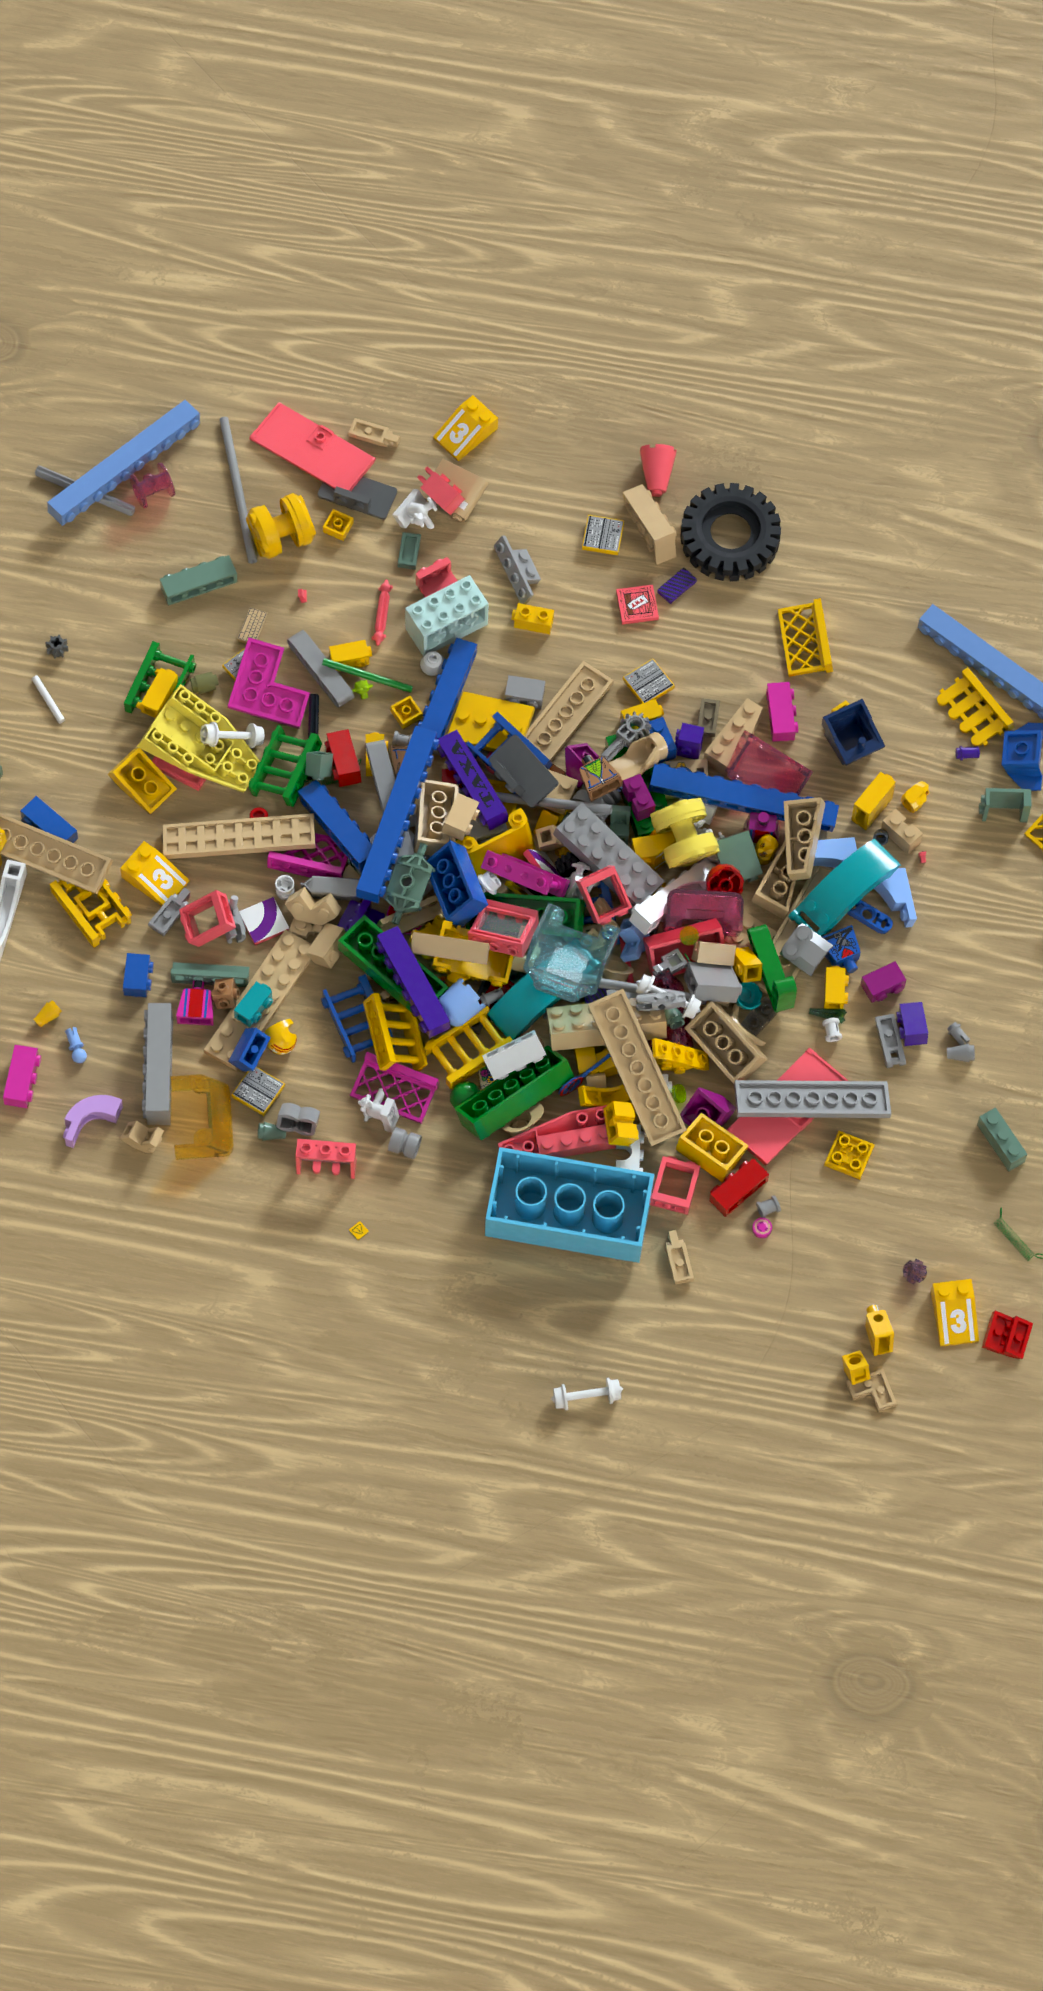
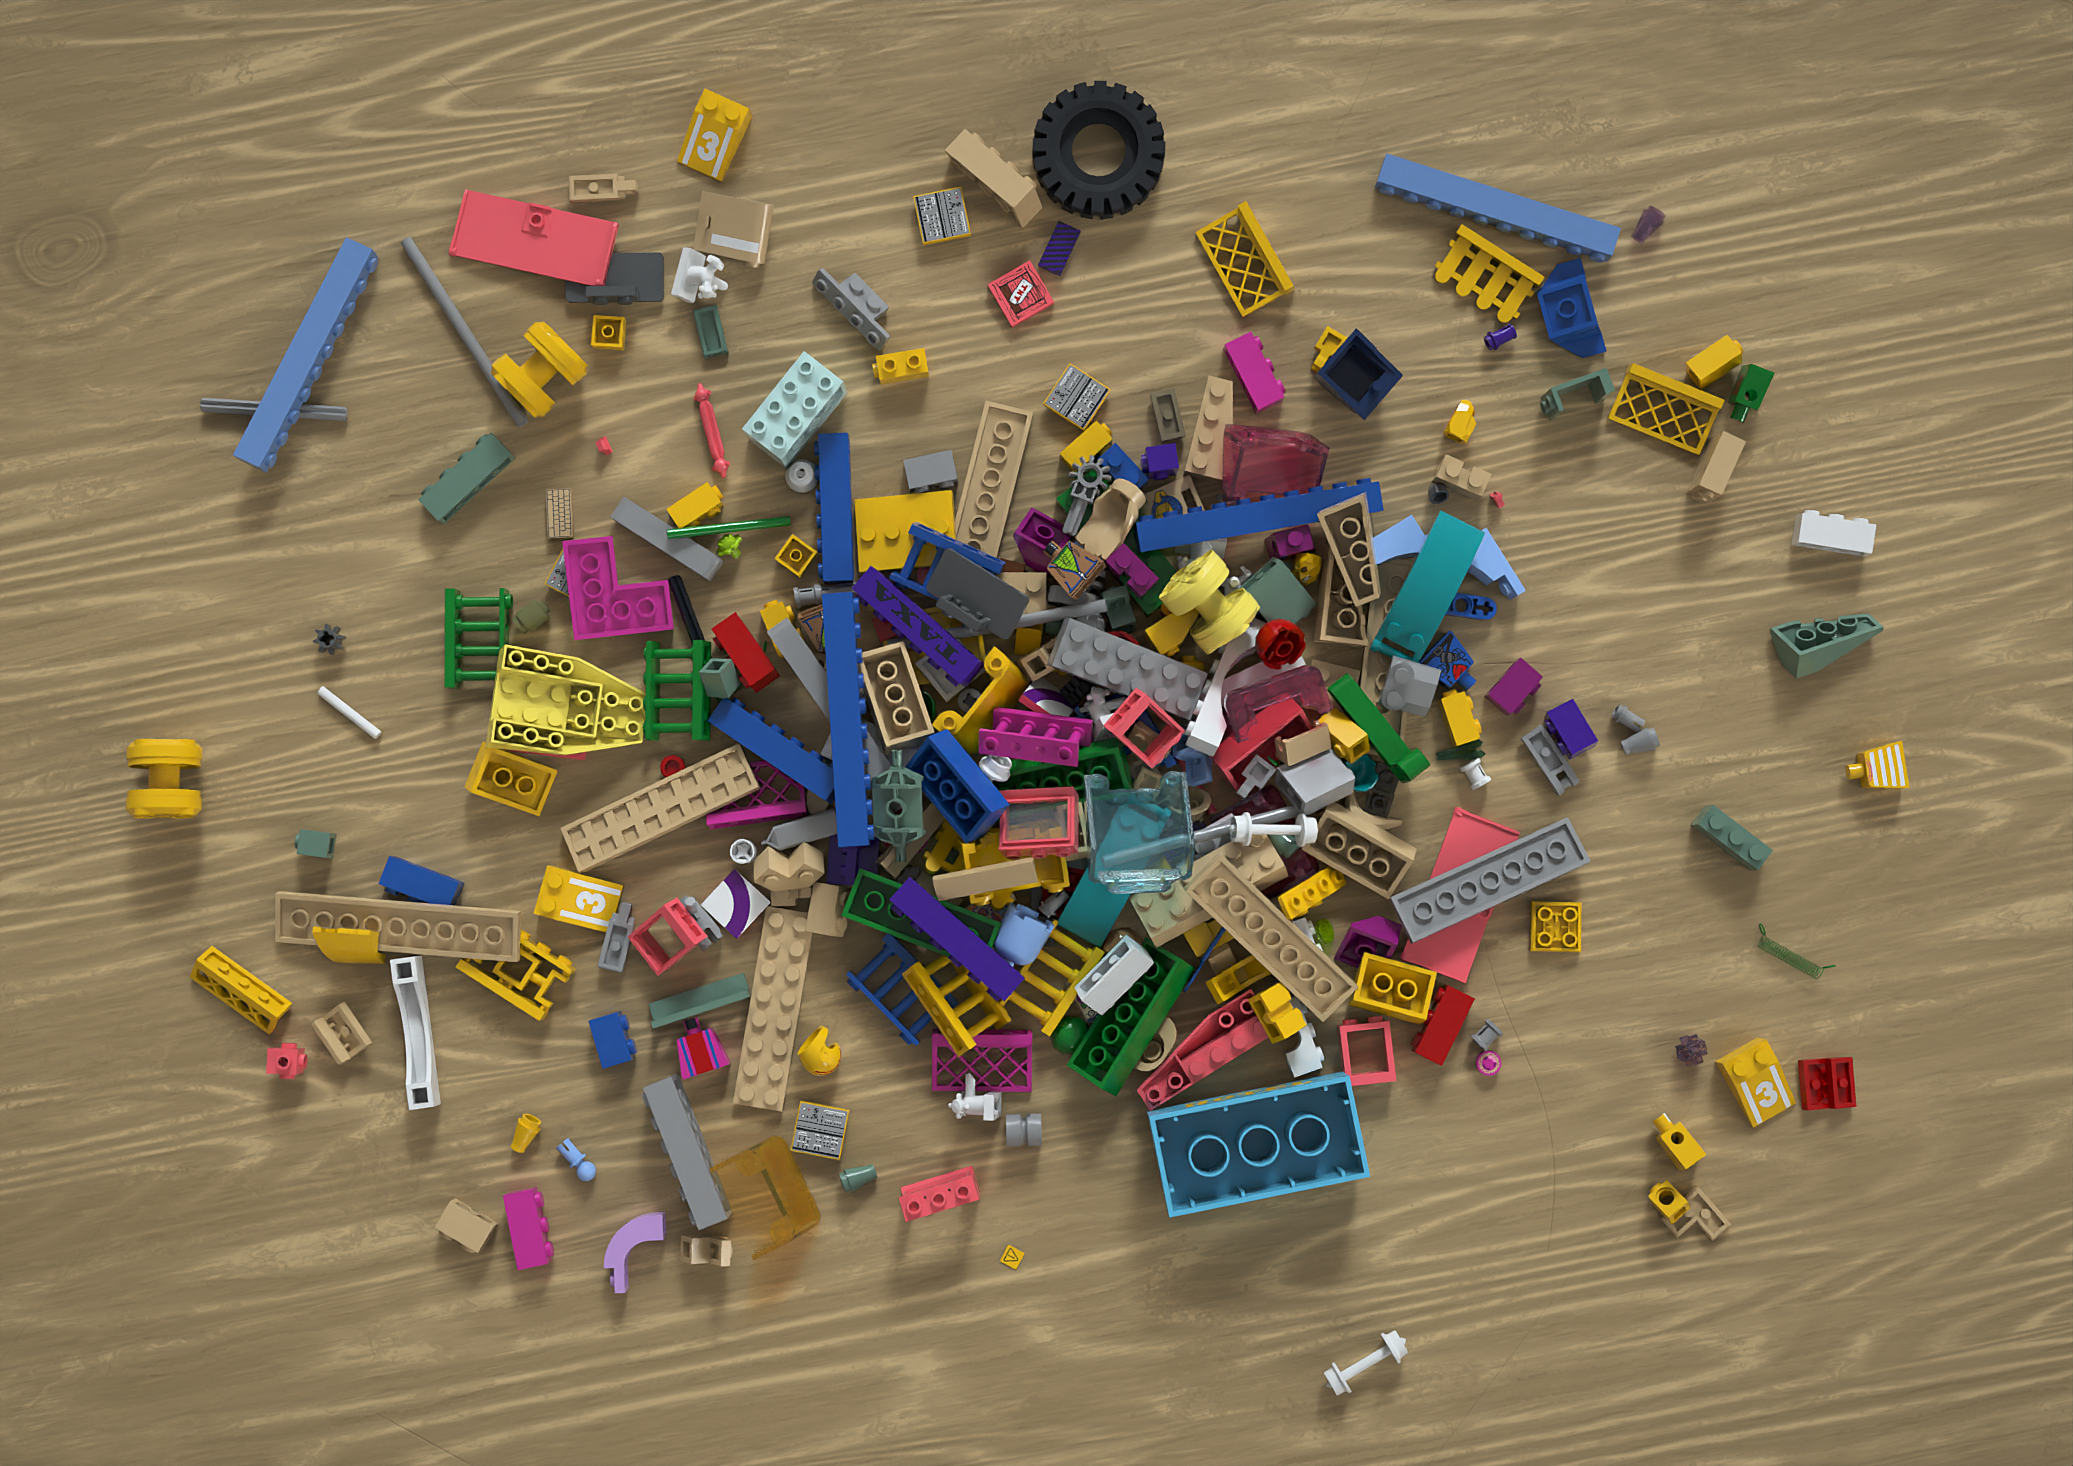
camera: 20 degrees left, 20 degrees up
(152, 484) = (353, 372): clear pink hose -> none
(159, 692) = (482, 657): yellow brick -> none
(210, 735) = (621, 664): white piece -> none
(225, 993) = (729, 1024): medium nougat brick -> none
(249, 1049) = (789, 1091): blue brick -> none
(253, 1004) = (770, 1026): teal brick -> none
(298, 1119) = (884, 1151): light grey brick -> none
(435, 577) = (764, 363): coral bracket -> none
(441, 491) = (719, 240): coral hinge -> none
(460, 816) = (927, 695): tan brick -> none
(657, 467) = (974, 98): coral cone -> none
(660, 1001) = (1269, 844): light grey hinge -> none
(678, 1259) = (1406, 1145): tan hinge -> none
(689, 935) = (1266, 736): piece -> none
(873, 800) = (1414, 451): yellow brick -> none

